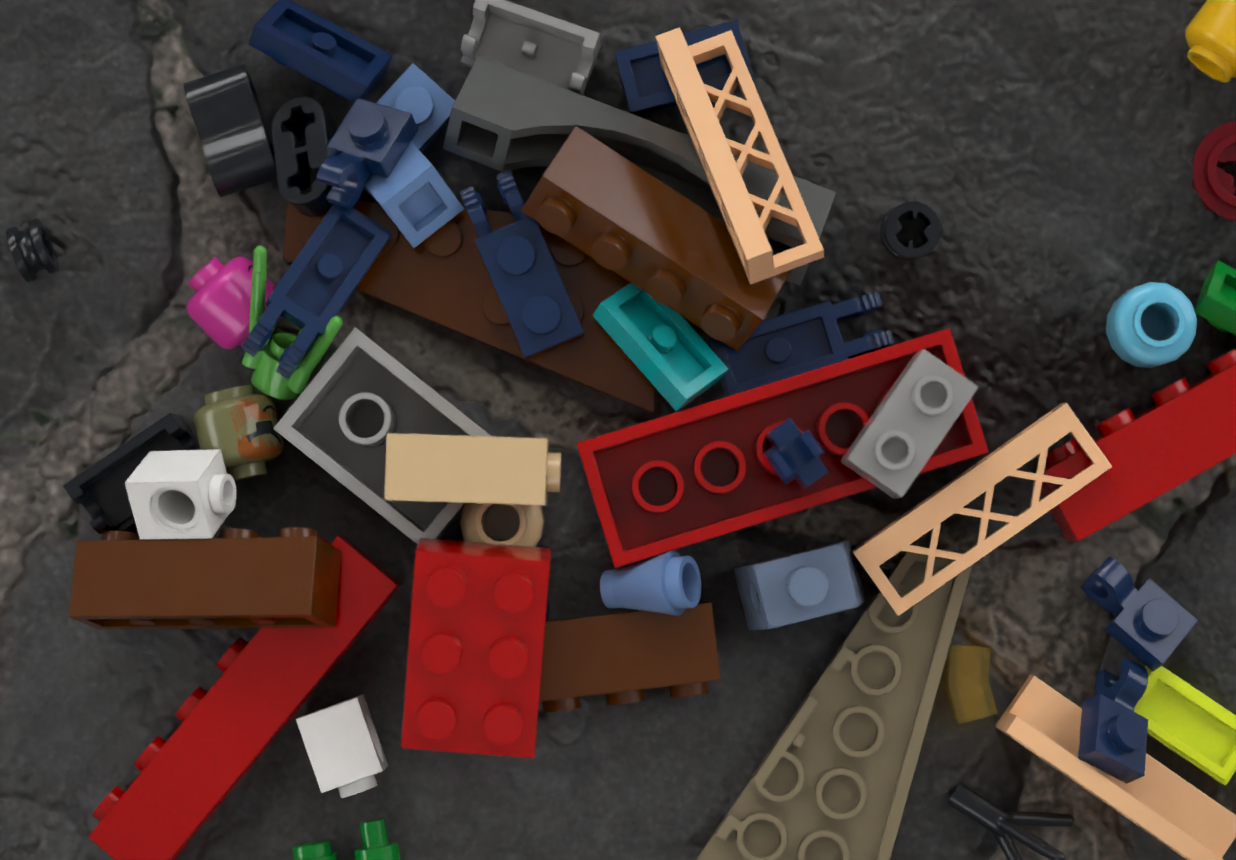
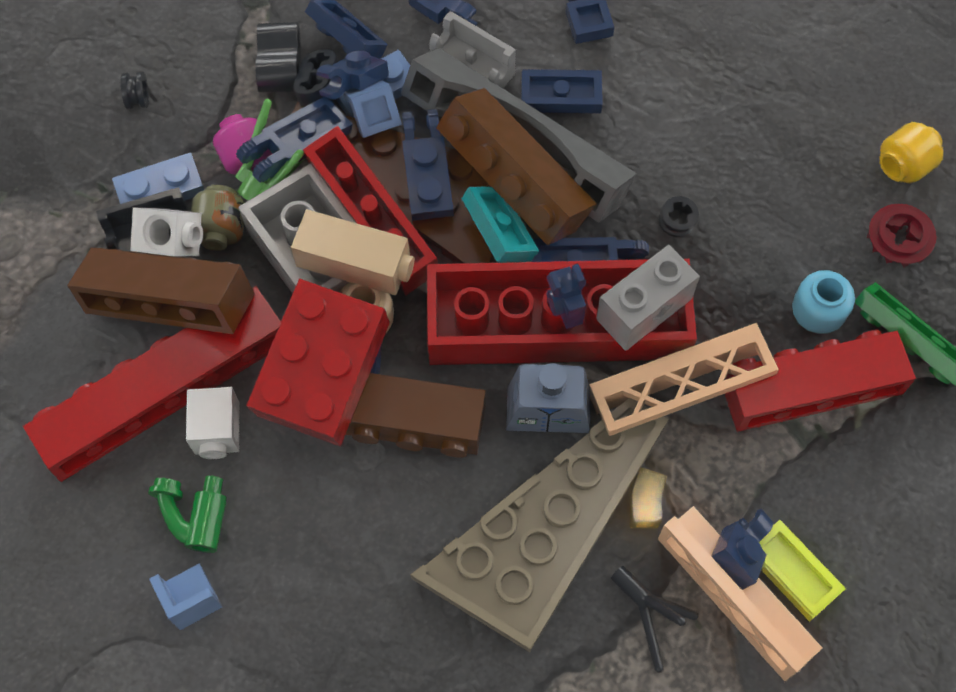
camera: 15 degrees right, 20 degrees down
(126, 395) = (160, 177): none -> medium blue plate
(460, 363) = (366, 197): none -> red brick
(655, 585) = (452, 366): medium blue cone -> none
(717, 154) = (572, 131): light nougat fence -> none
(1145, 618) = (775, 488): dark blue plate -> none

